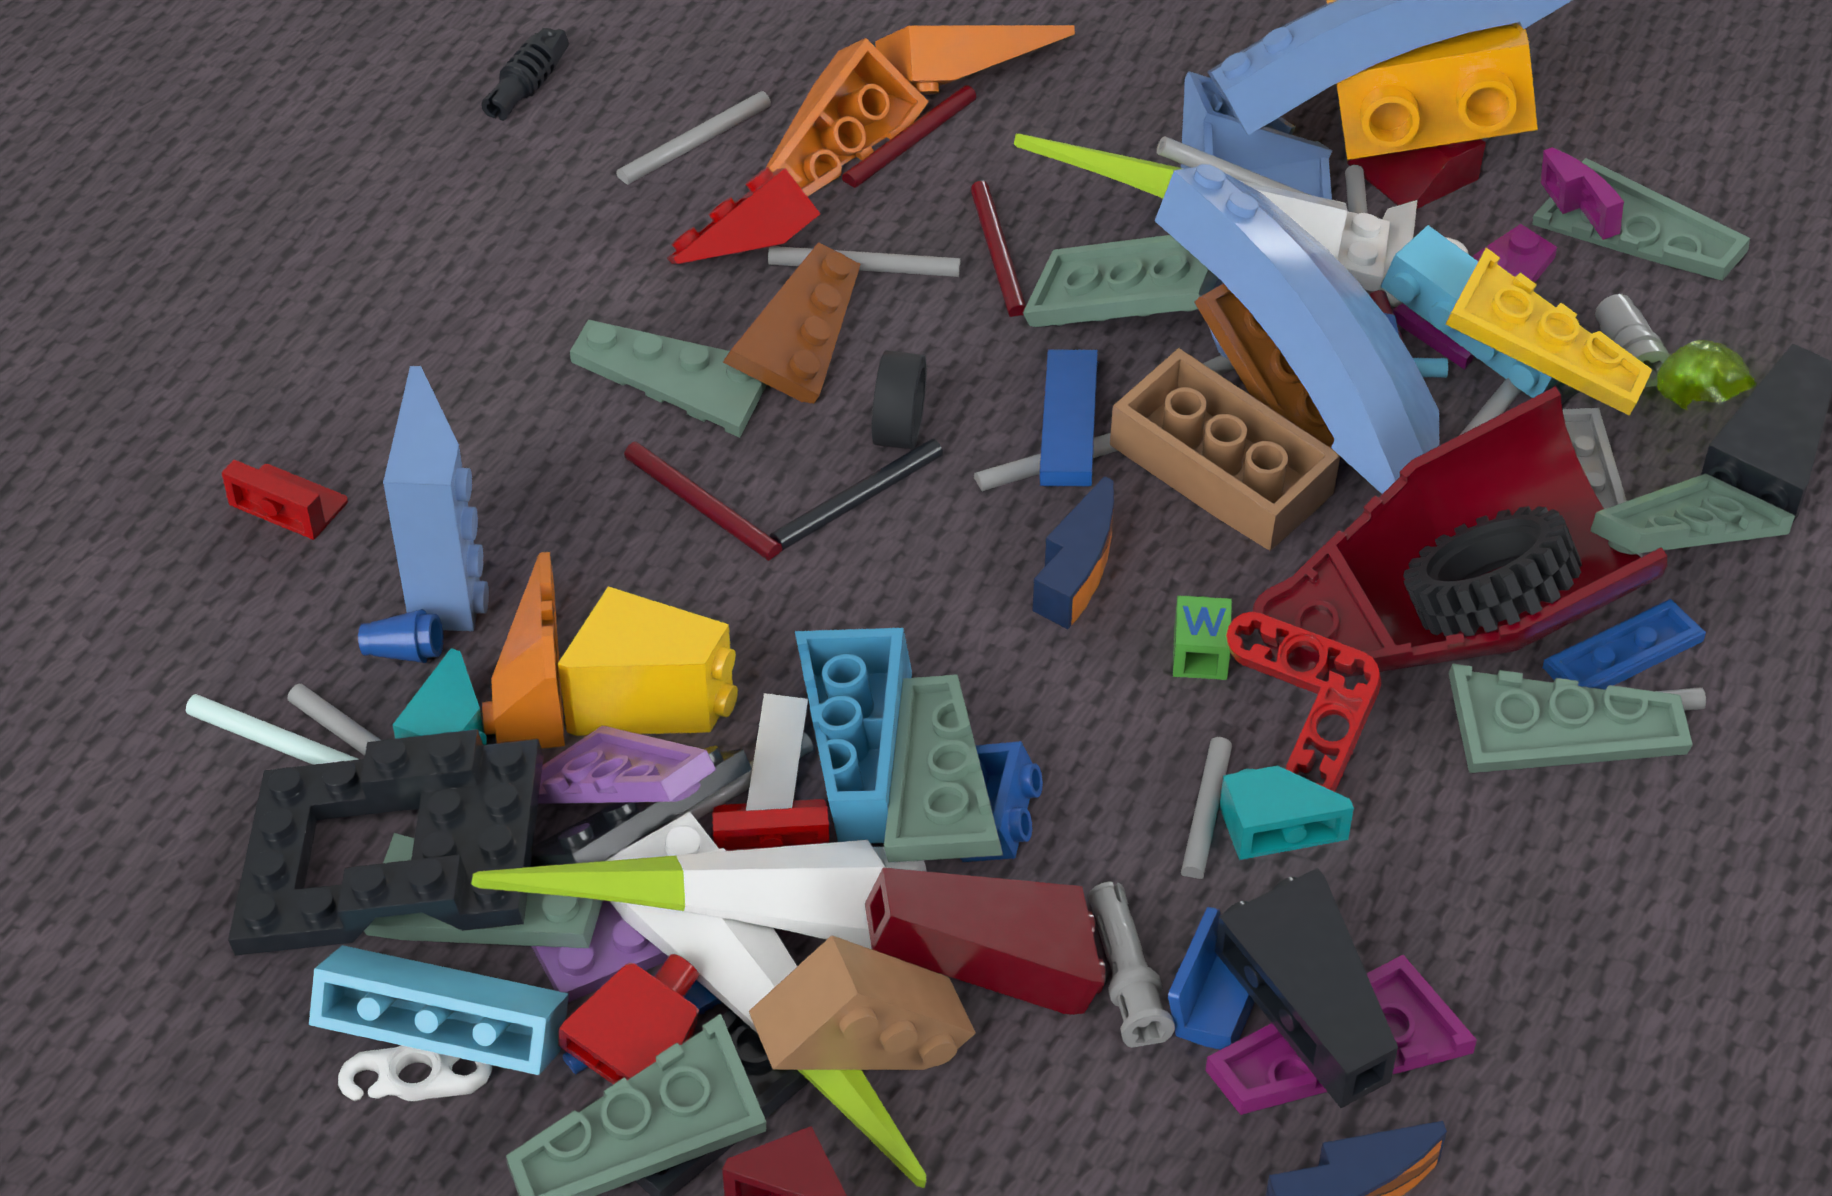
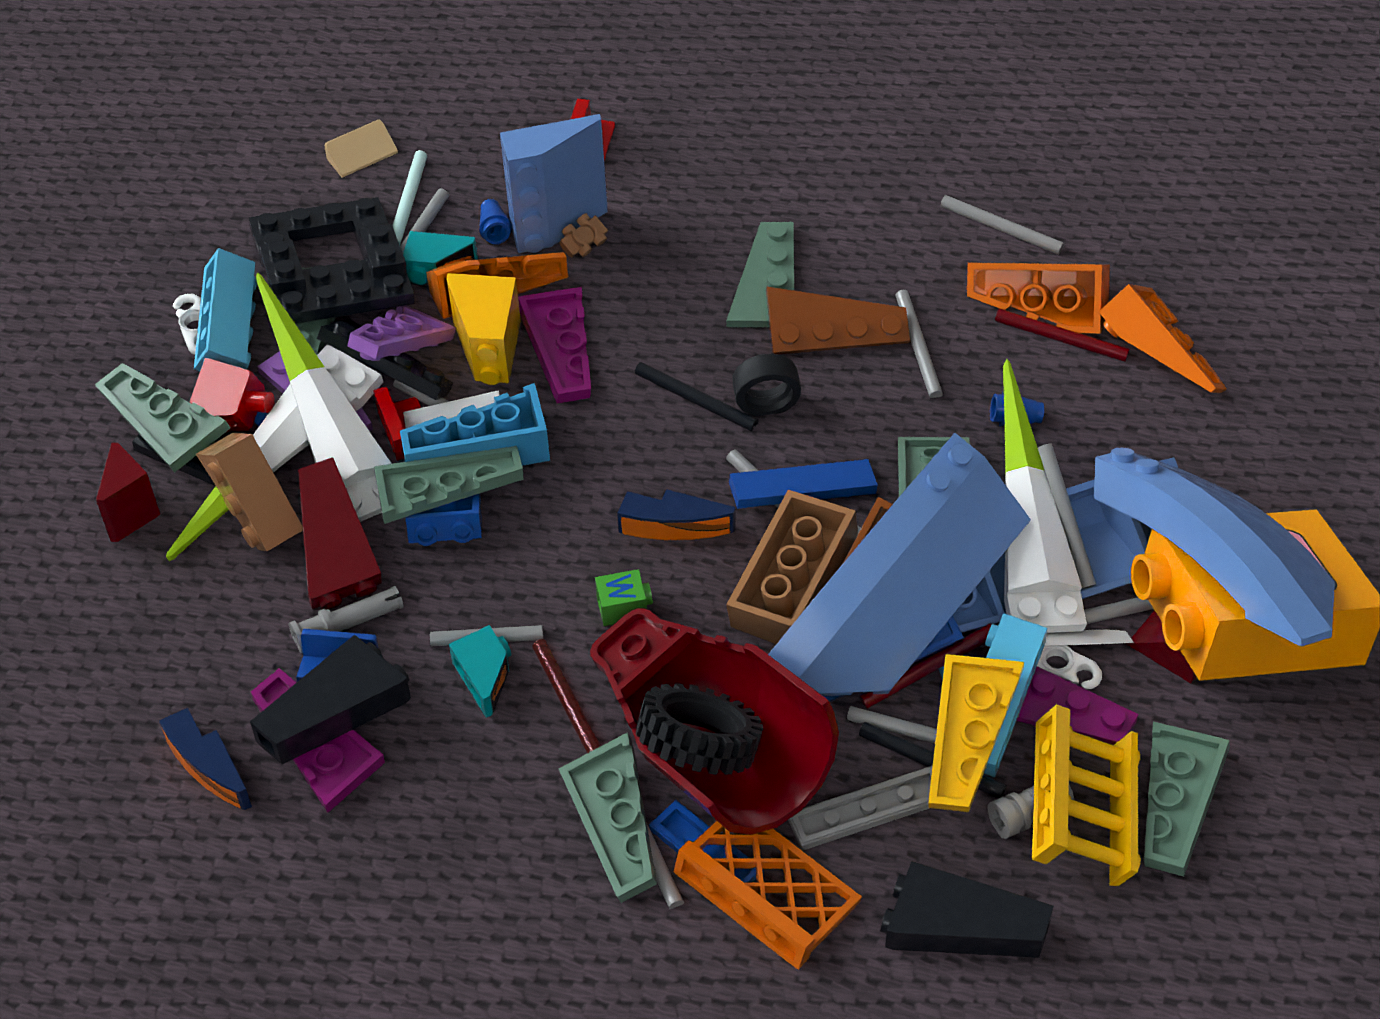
camera: 75 degrees right, 5 degrees up
(138, 776) = (360, 148): none -> tan slope
(500, 552) = (580, 239): none -> medium nougat piece
(525, 71) = (1019, 120): black hinge -> none
(702, 501) = (660, 322): dark red bar -> none
(751, 610) = (560, 341): none -> magenta wing
(760, 219) = (910, 272): red slope -> none
(998, 249) = (957, 414): dark red bar -> none
(1023, 194) = (1034, 409): none -> blue cone
(1332, 695) = (576, 671): red beam -> none
(1370, 737) = (566, 695): none -> clear red bar
(1578, 186) = (1176, 731): magenta slope -> none
(1644, 280) = (1054, 803): none -> yellow fence
(1688, 516) = (831, 860): sand green wing -> none
(1703, 373) = (1002, 850): clear neon green hair -> none
(1718, 620) = (747, 900): none -> orange fence

